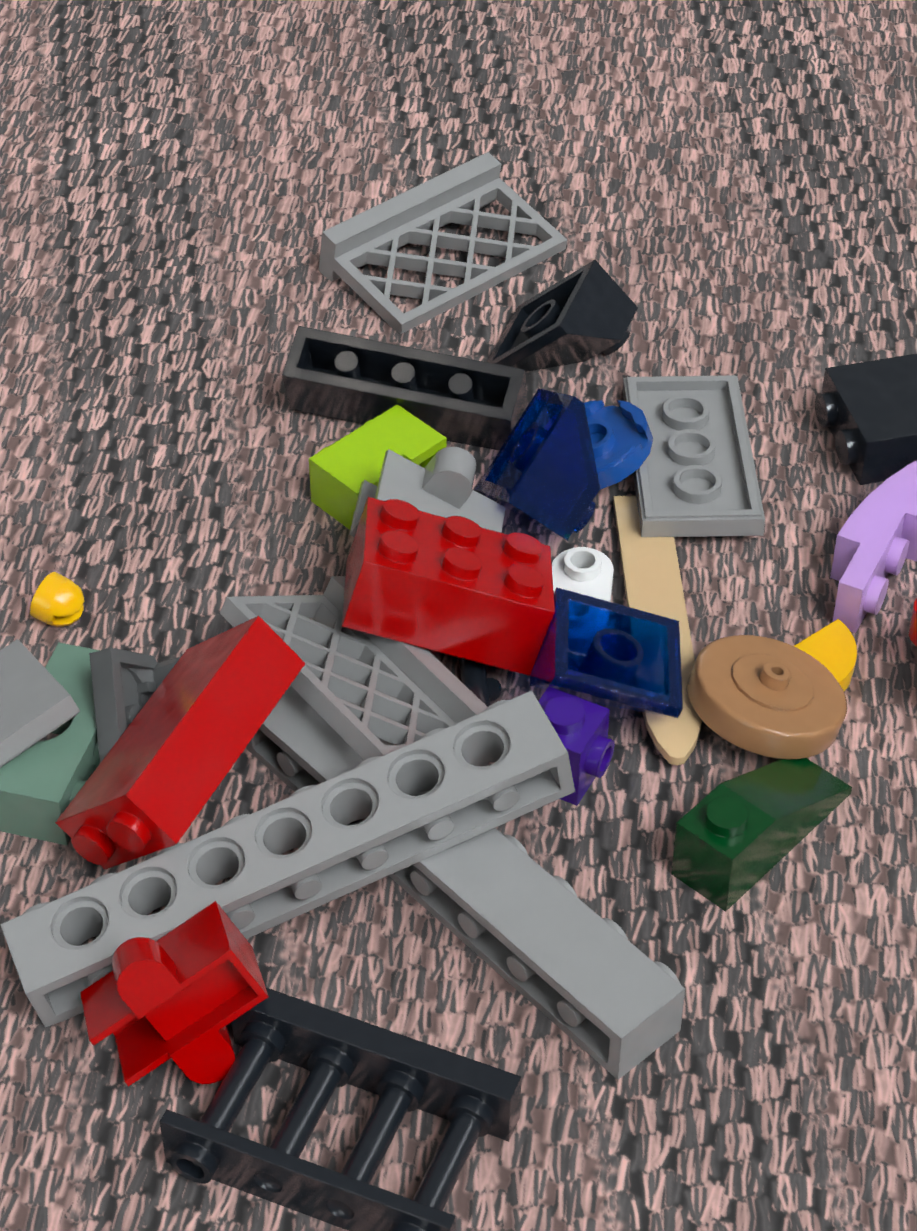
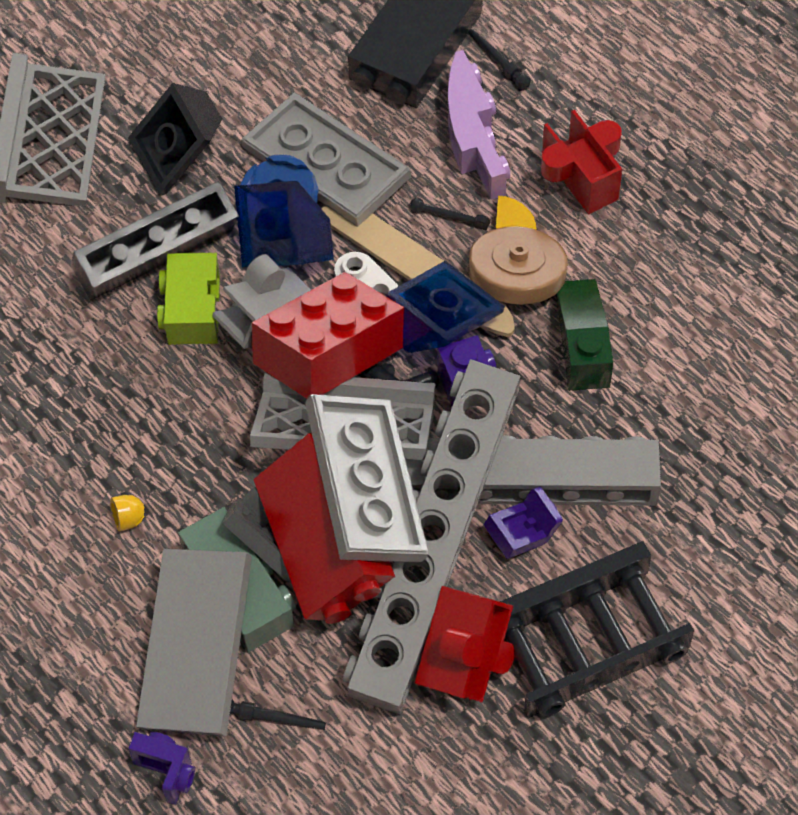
camera: 45 degrees left, 15 degrees up
(259, 714) = (366, 479): none -> light grey tile
(420, 951) = (524, 524): none -> dark purple bracket
(738, 568) = (480, 221): none -> black hinge

